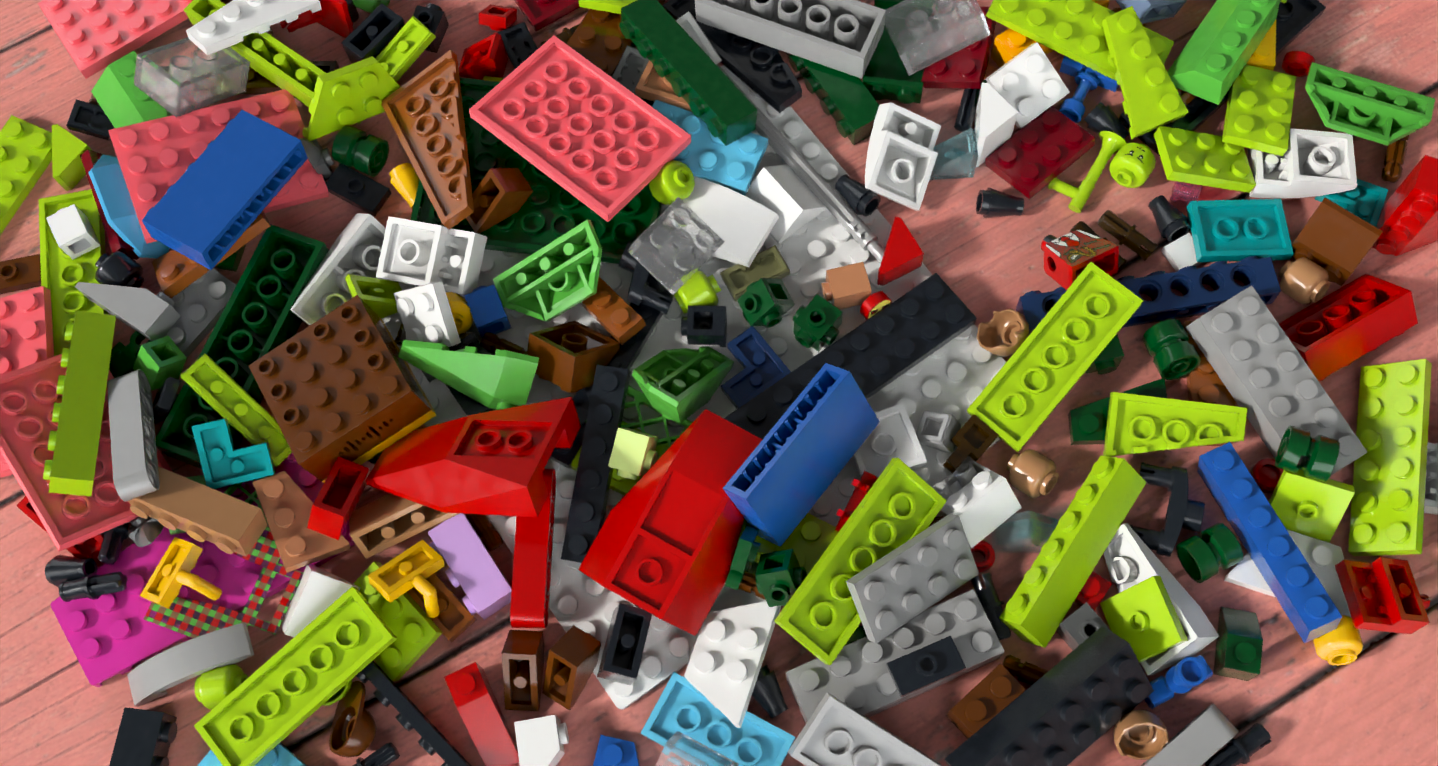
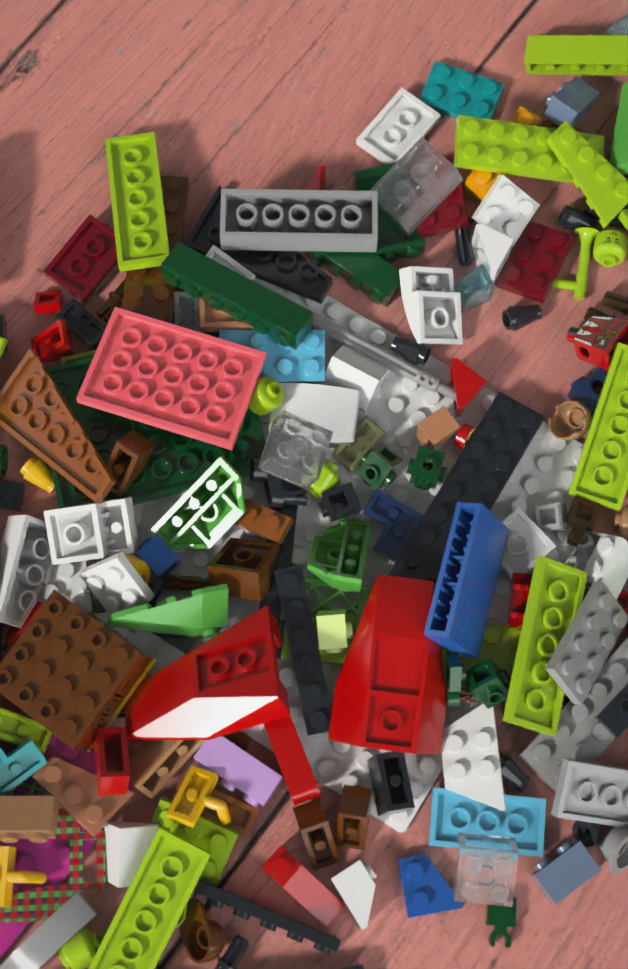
camera: 30 degrees left, 5 degrees up
(375, 293) = (62, 578): lime slope -> none
(1087, 80) = (546, 189): blue bar -> none

